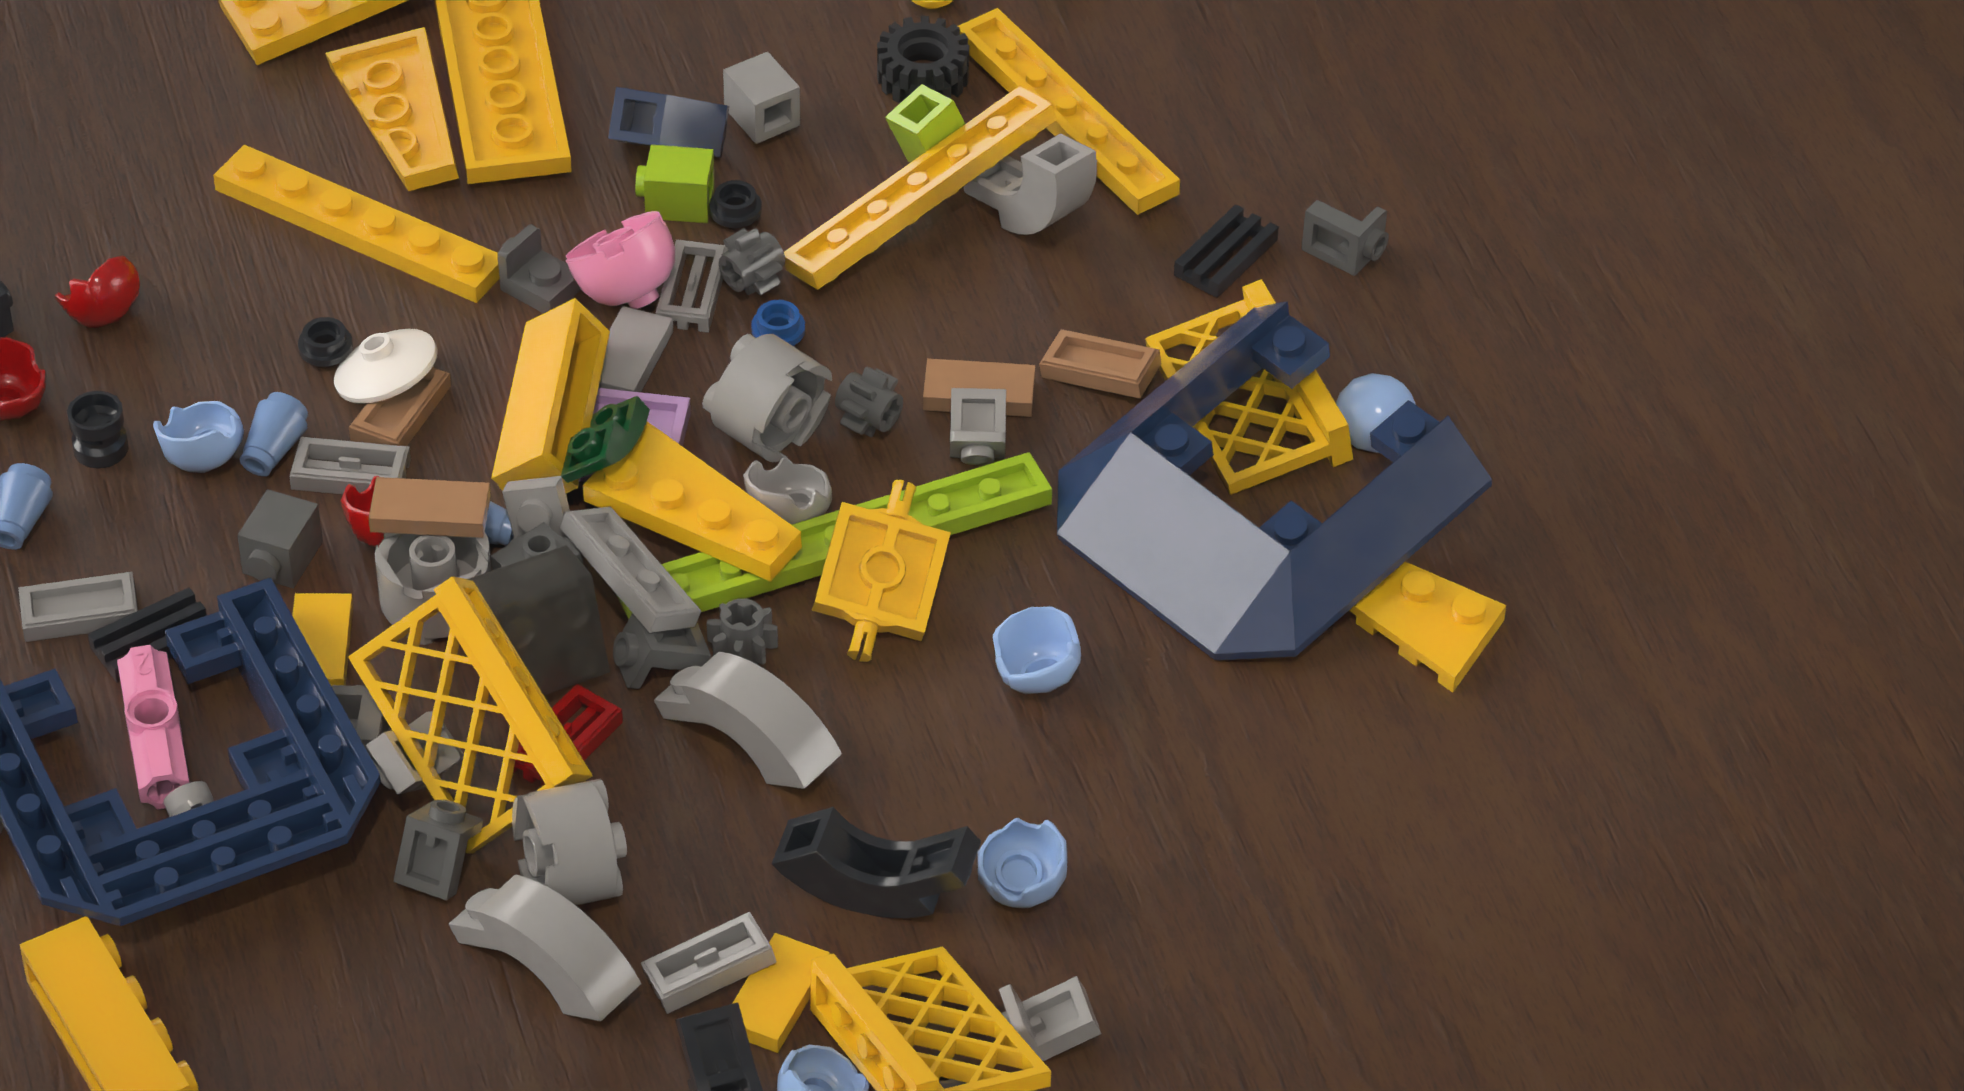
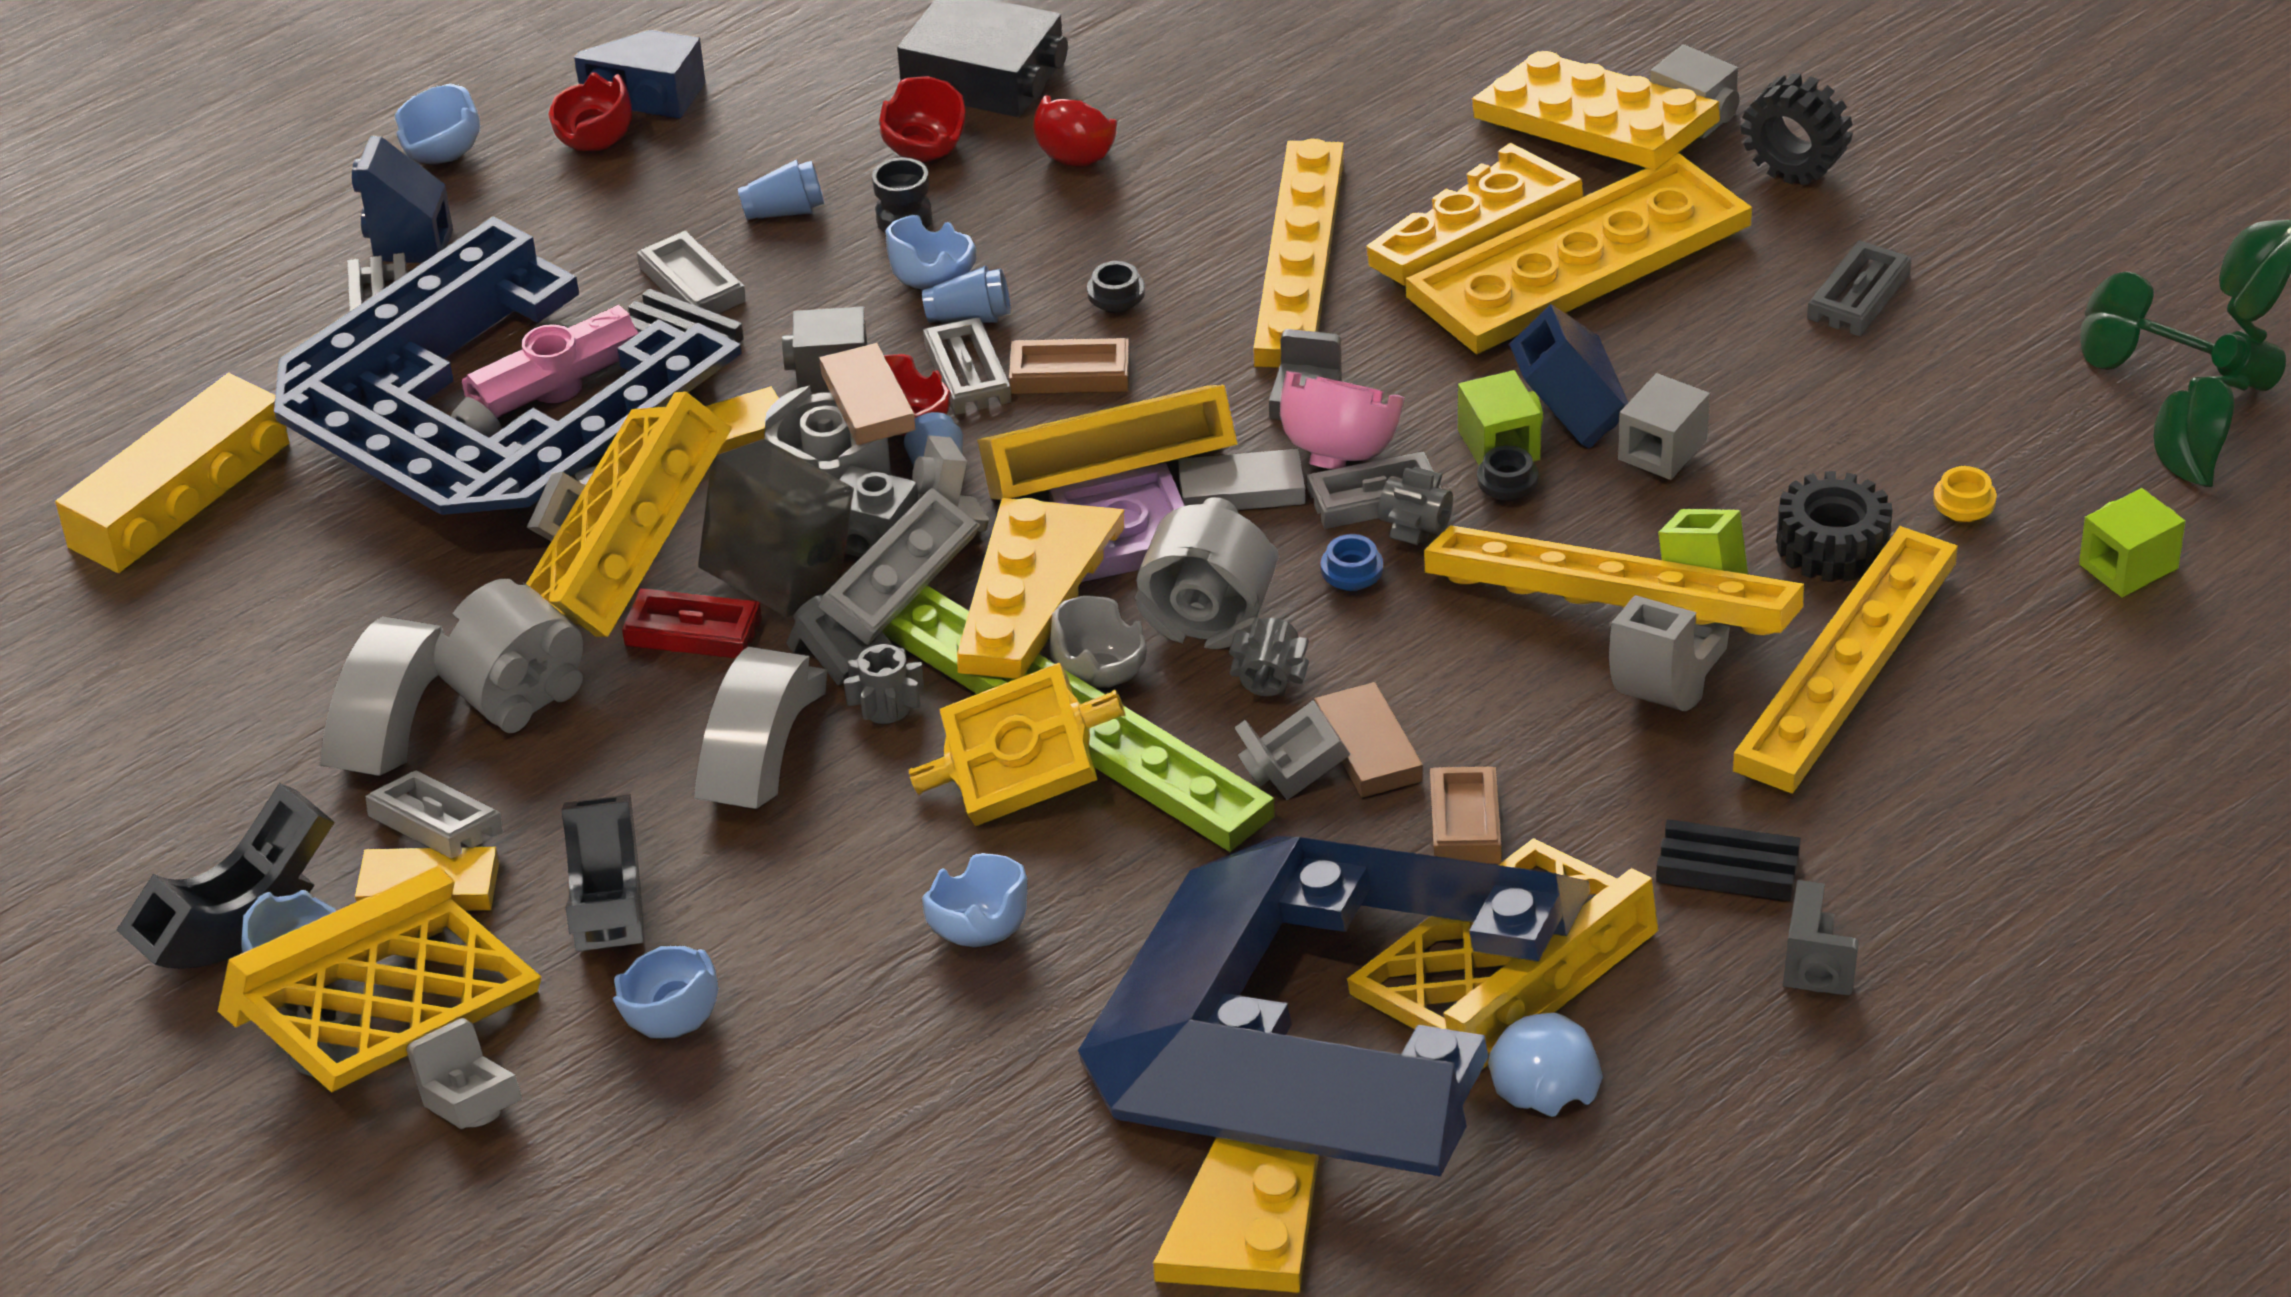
camera: 70 degrees right, 5 degrees down
(385, 365) = (1106, 328): white dish -> none
(435, 848) = (486, 562): dark grey bracket -> none
(607, 440) = (1046, 482): dark green slope -> none

